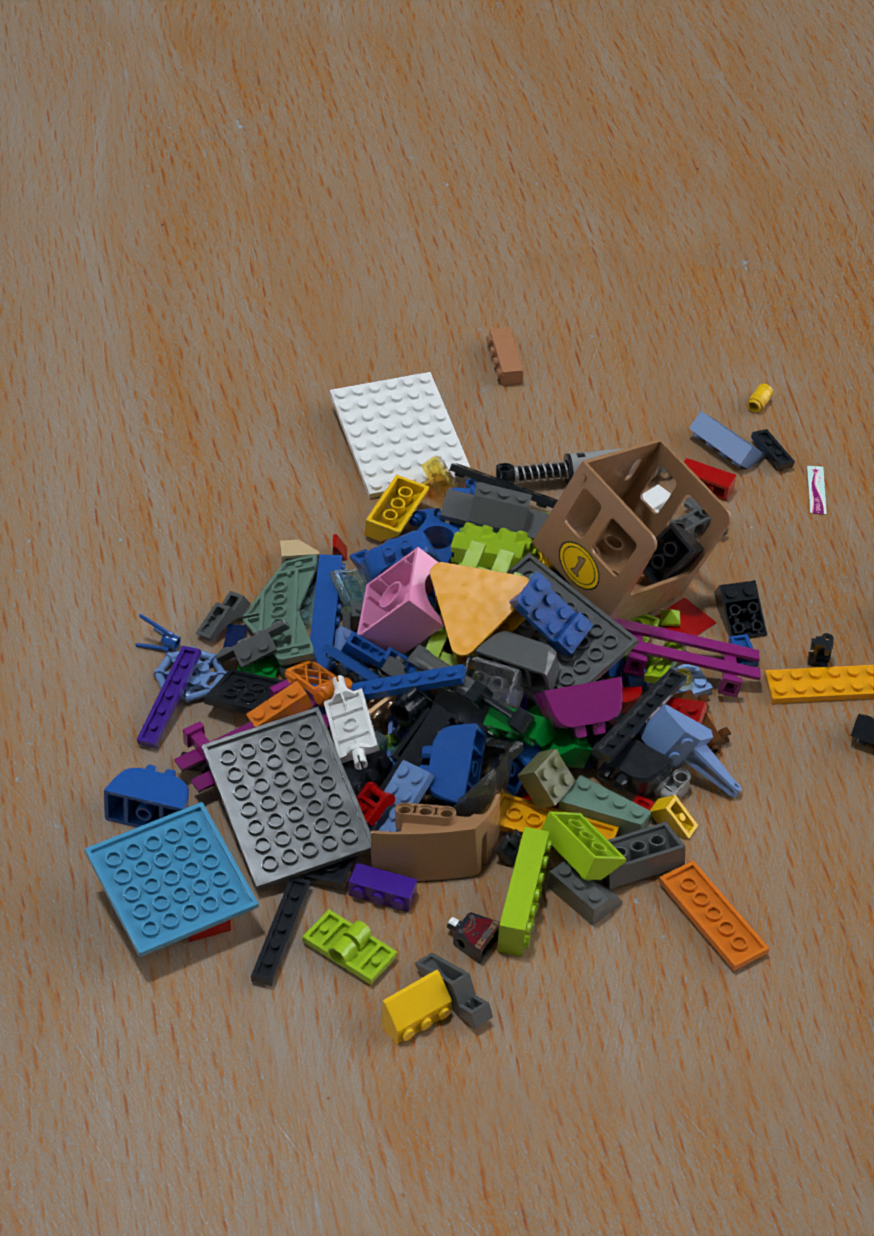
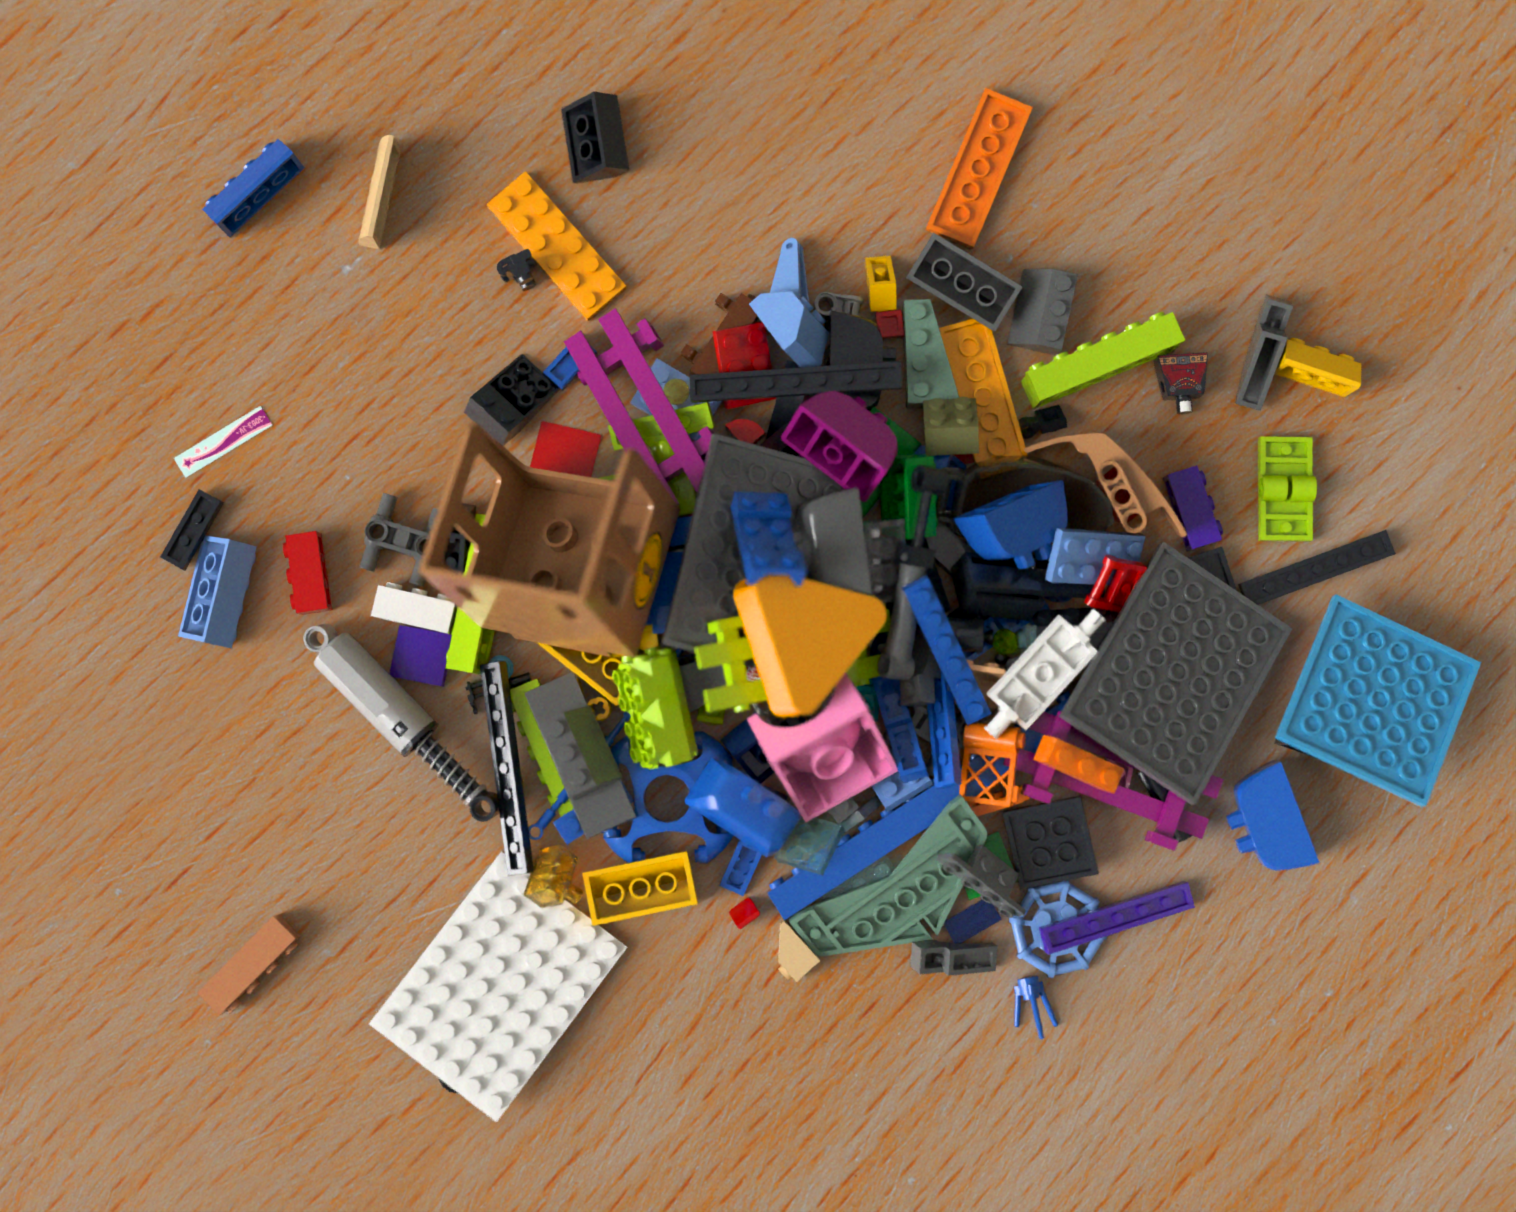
camera: 125 degrees left, 40 degrees up
(582, 845) = (1010, 333): lime slope -> none
(670, 617) = (577, 467): lime slope -> none
(673, 554) = (533, 492): black slope -> none
(759, 398) = (101, 602): yellow head -> none

